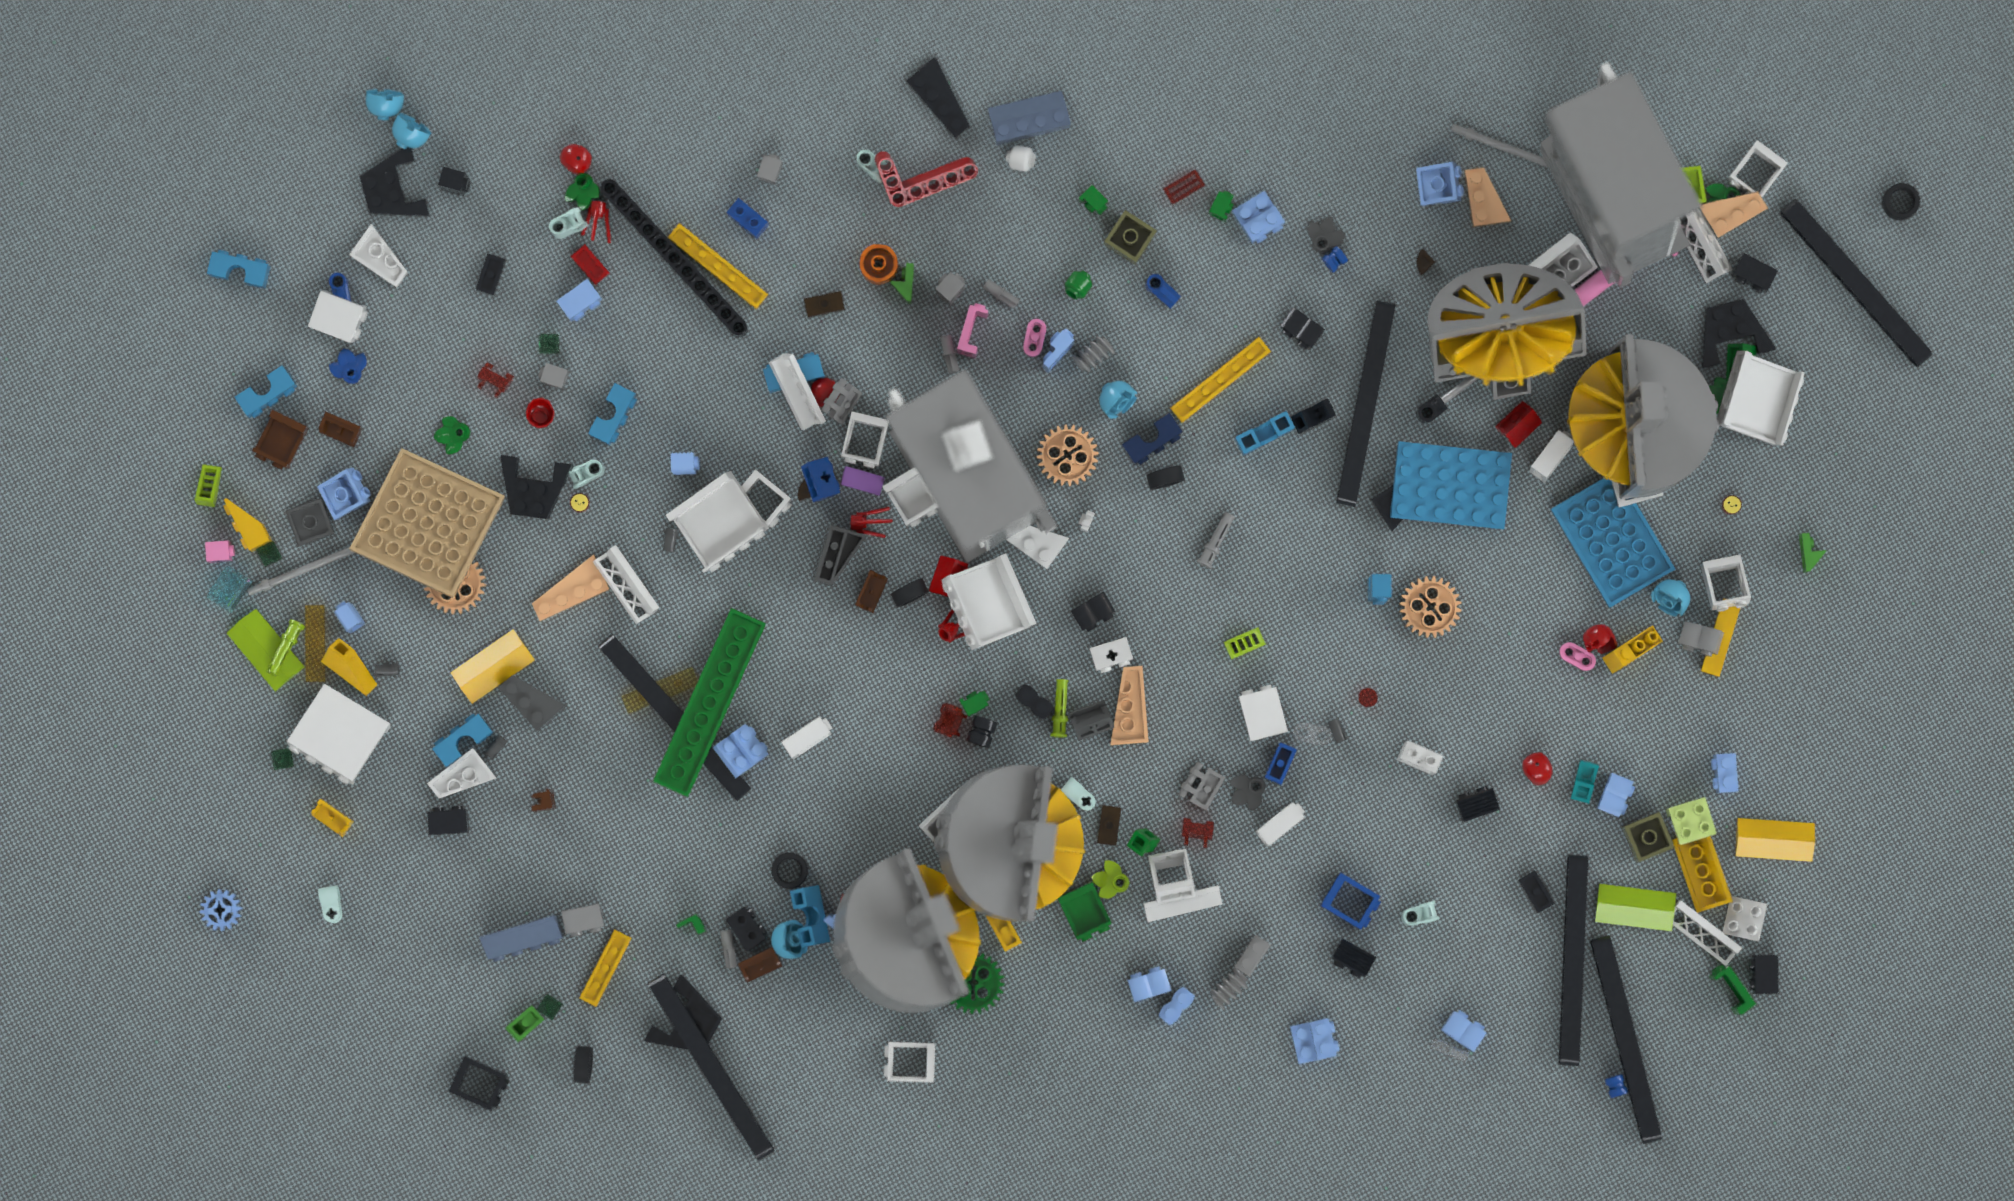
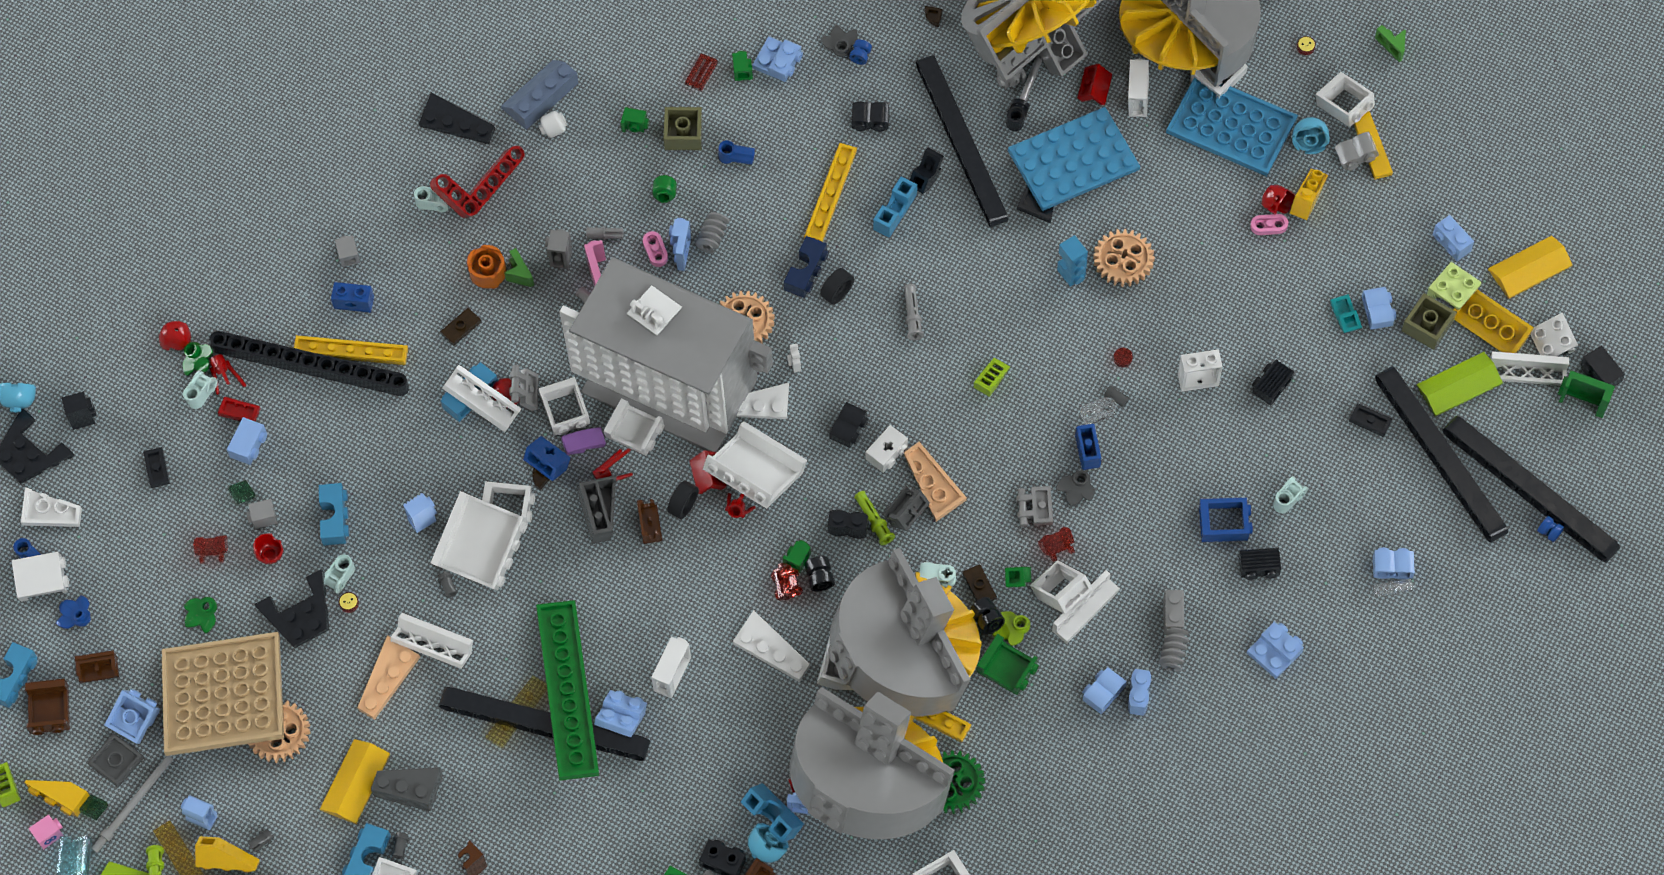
camera: 30 degrees left, 20 degrees down
(789, 885) = (728, 773): black tyre -> none
(900, 765) = (767, 645): none -> white wing
(1098, 853) = (987, 615): none -> black wheel
(1116, 398) = (755, 251): medium azure cylinder -> none
(1262, 713) = (1046, 418): white panel -> none
(1280, 823) = (1122, 492): white window -> none
(1539, 774) = (1304, 327): red helmet -> none

